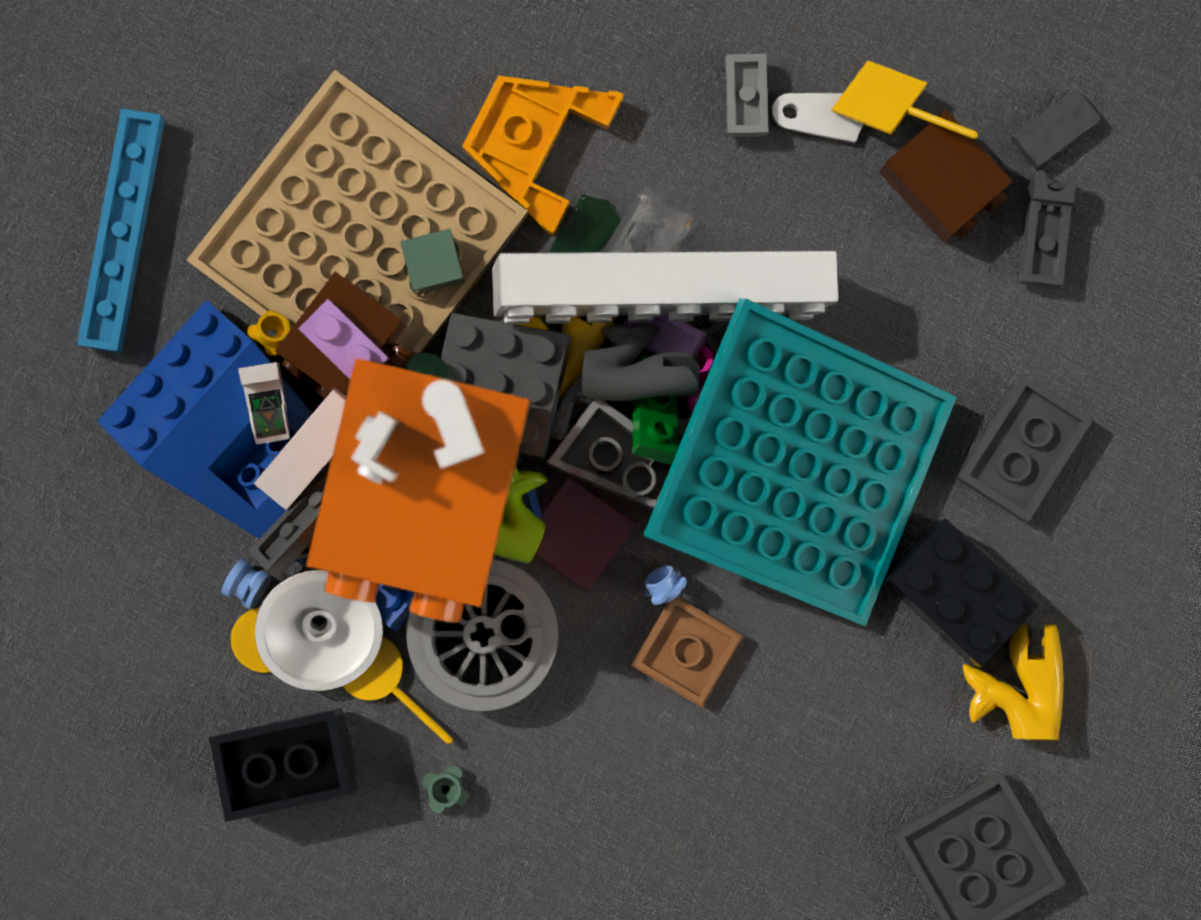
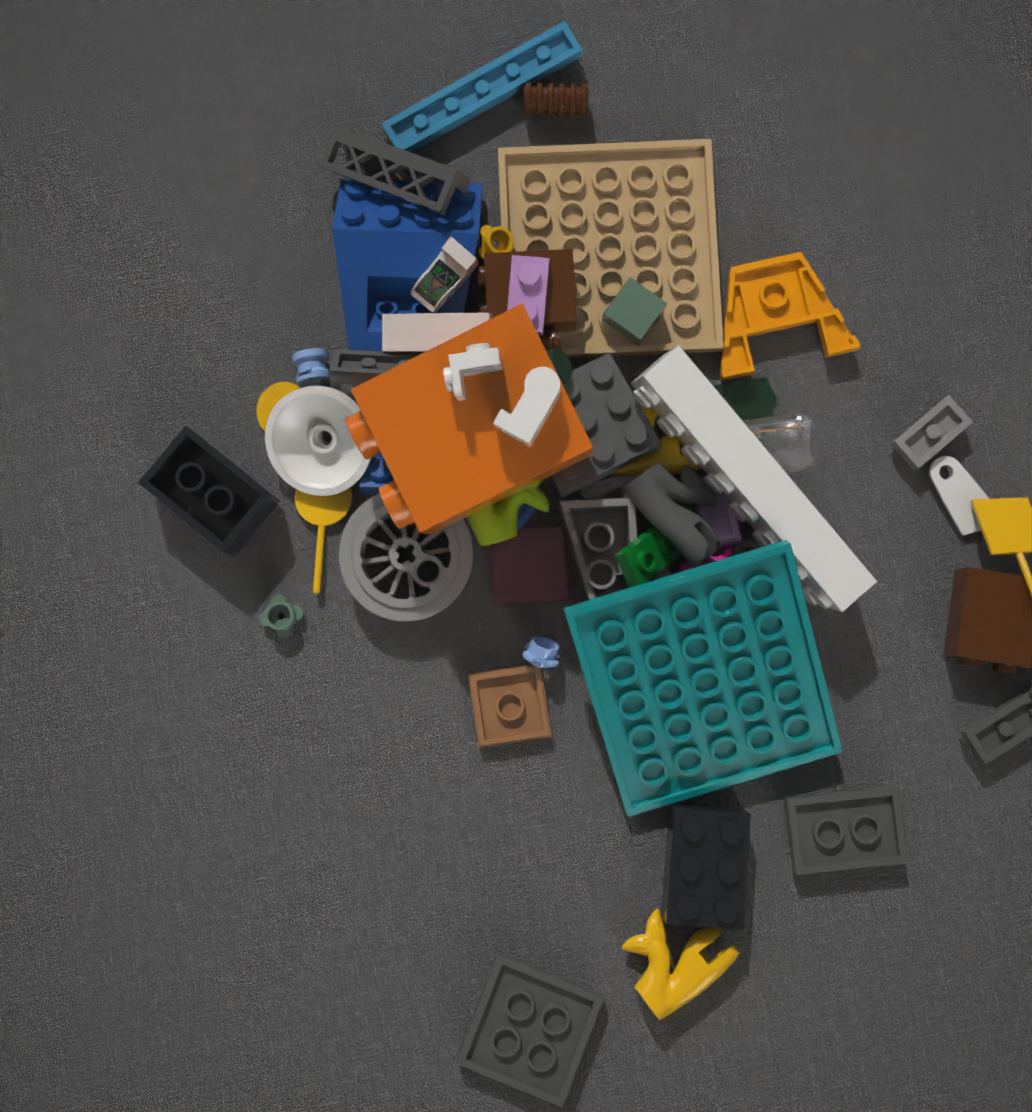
camera: 50 degrees right, 0 degrees up
(129, 356) = (393, 161): none -> dark grey fence
(185, 174) = (556, 99): none -> reddish brown piece

